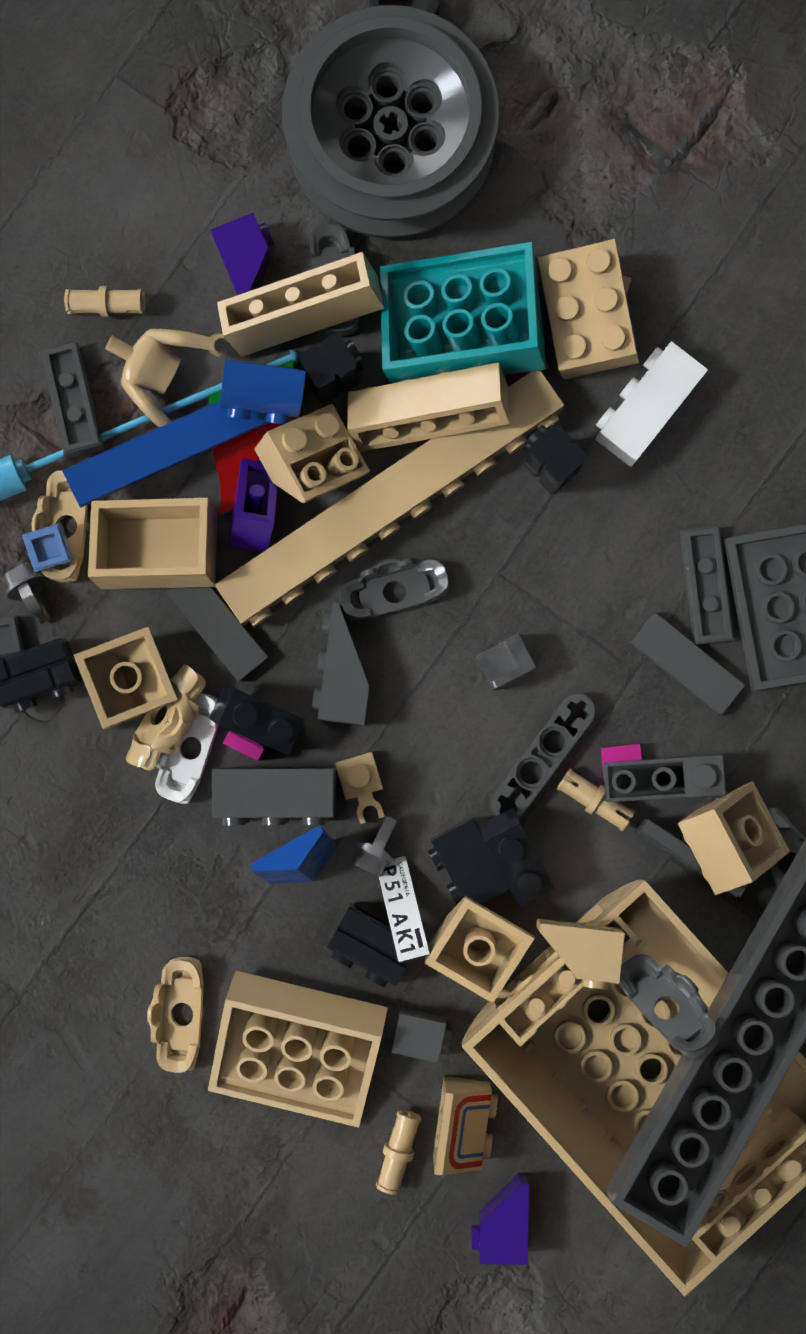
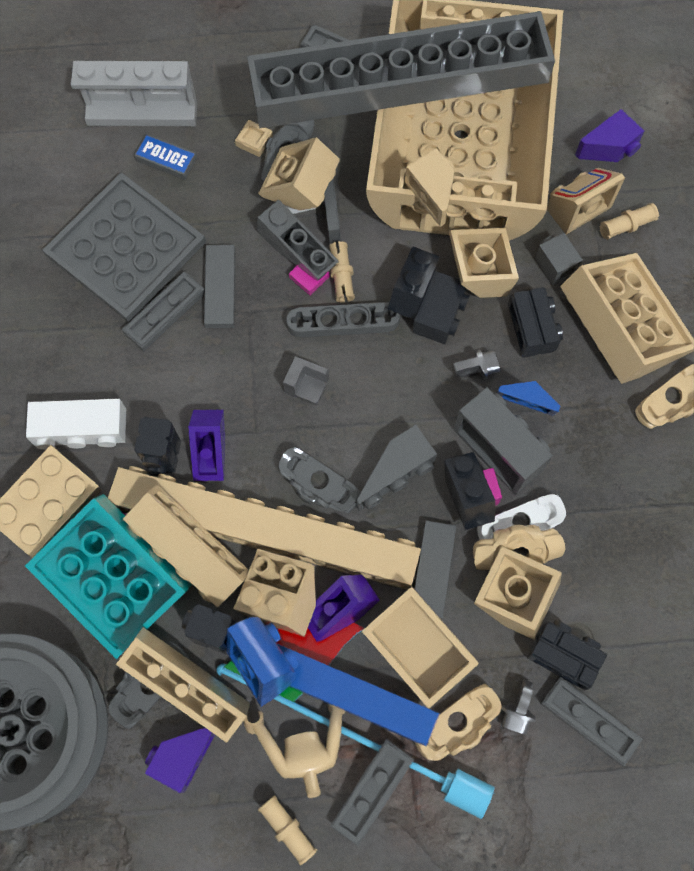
camera: 135 degrees left, 15 degrees down
(47, 547) = (482, 716): medium blue tile -> none
(359, 779) = (447, 406): tan plate -> none
(403, 910) = (500, 318): white sticker -> none
(521, 513) = (207, 445): none -> dark purple slope
(648, 983) = (426, 91): dark grey piece -> none

